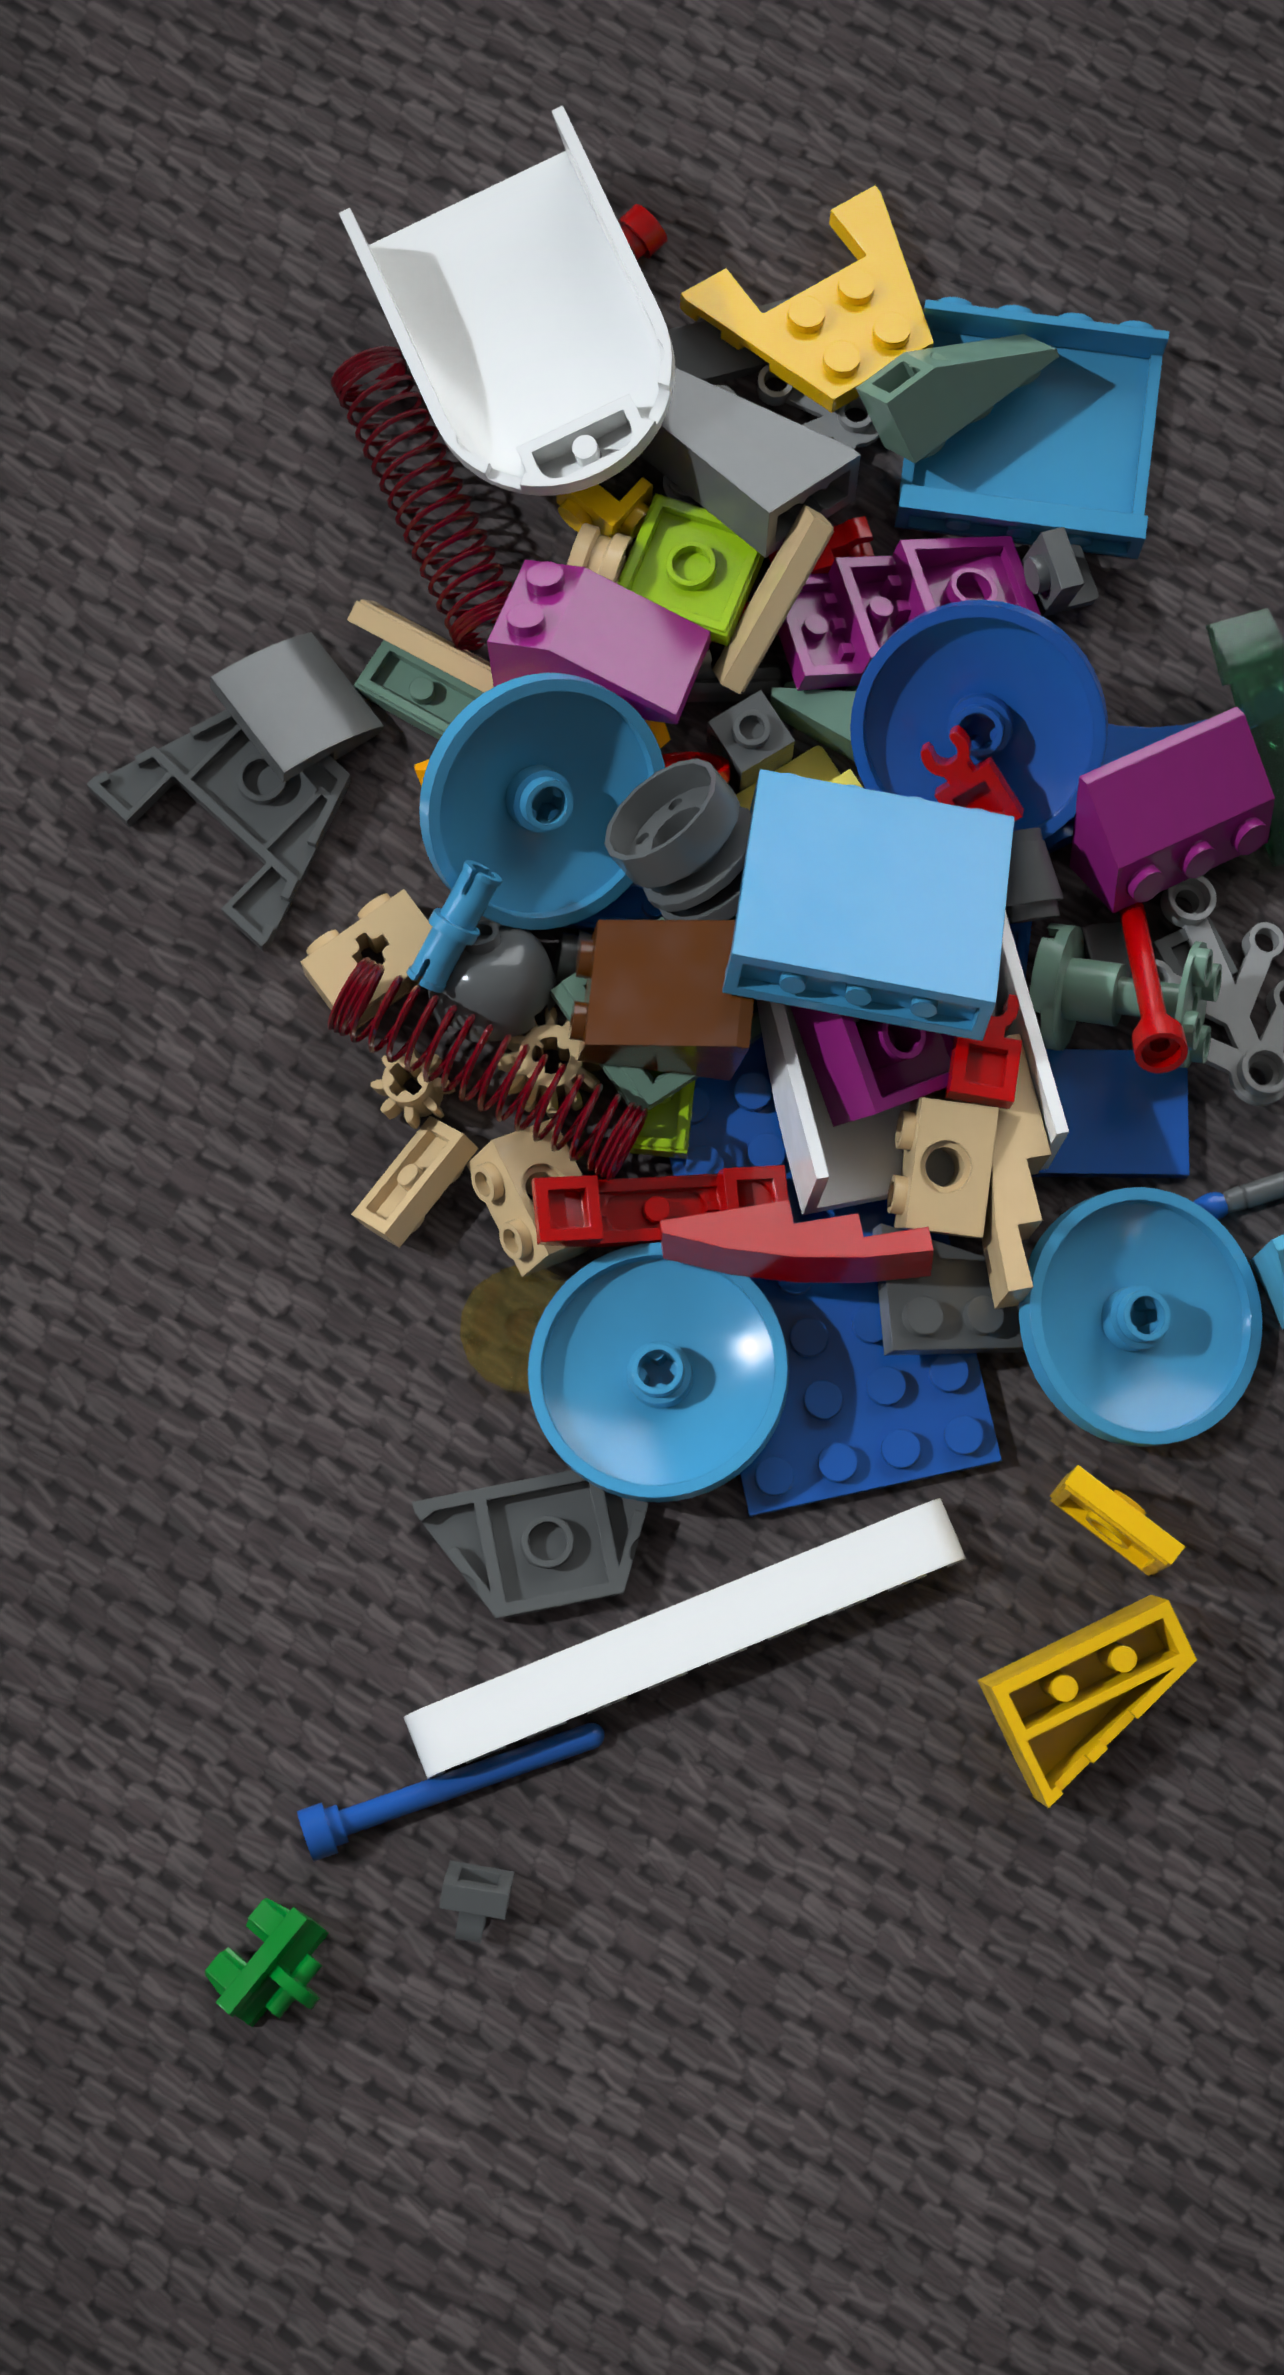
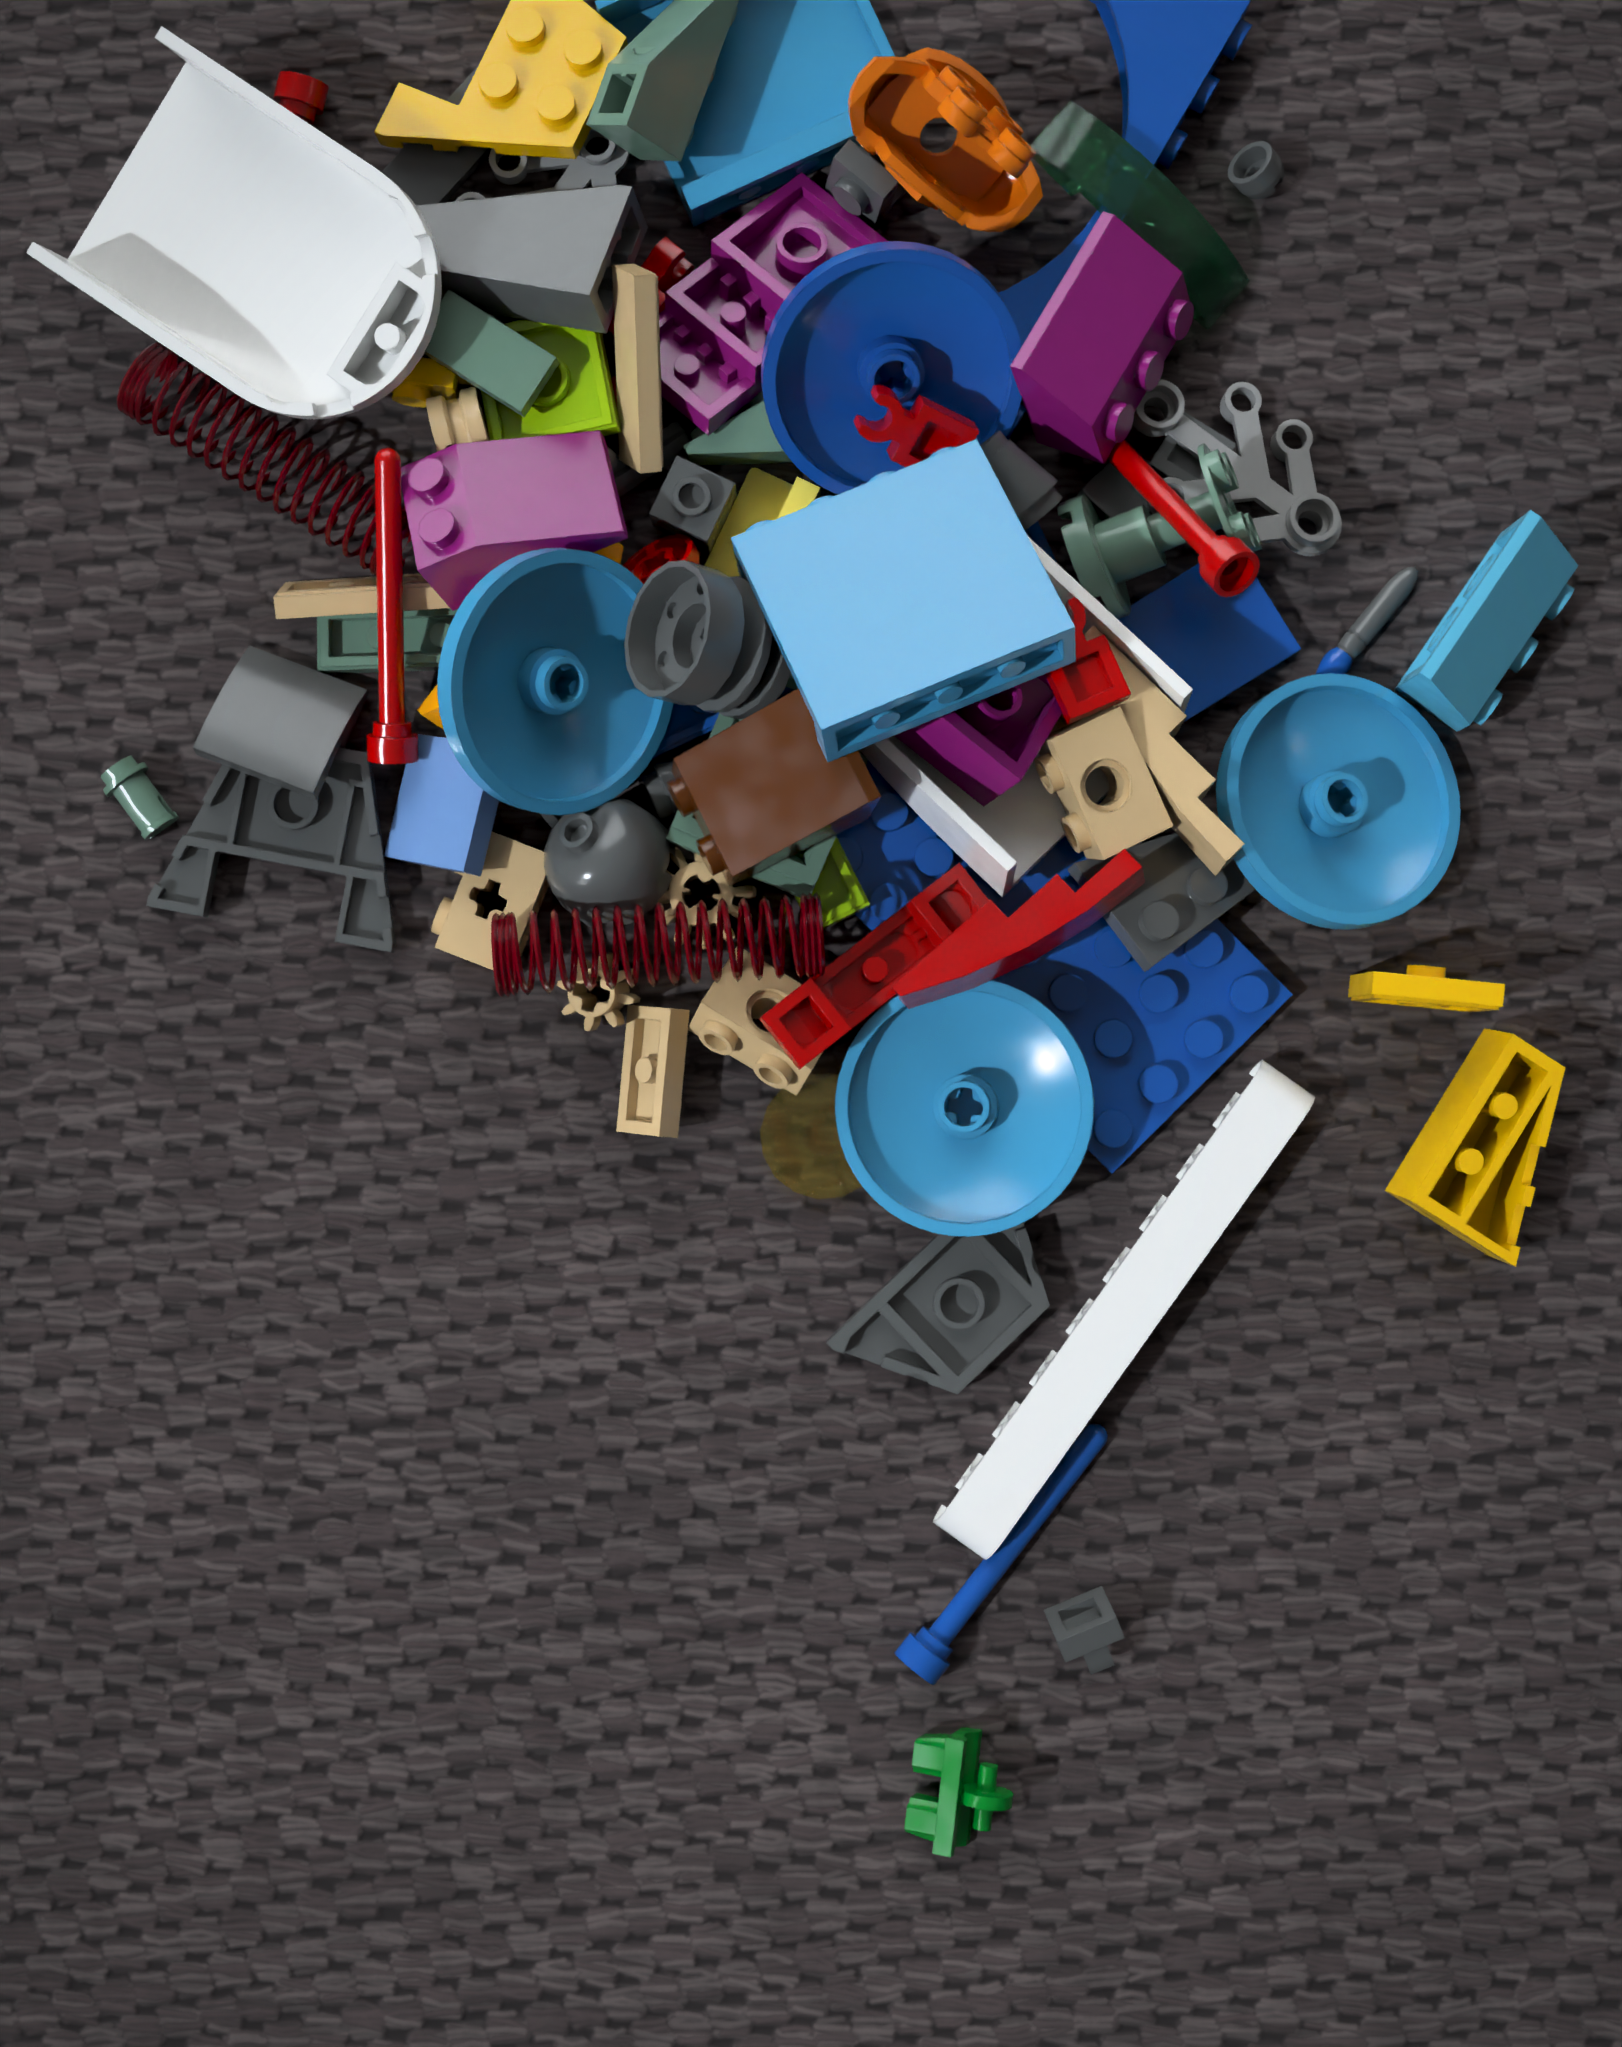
camera: 25 degrees left, 10 degrees up
(139, 695) = (138, 796): none -> sand green pin
(378, 857) = (441, 813): none -> medium blue tile
(380, 771) = (392, 734): none -> red piece
(454, 926) = (552, 841): dark azure pin -> none
(658, 516) = (489, 354): none -> sand green tile
(1155, 627) = (987, 170): none -> orange piece

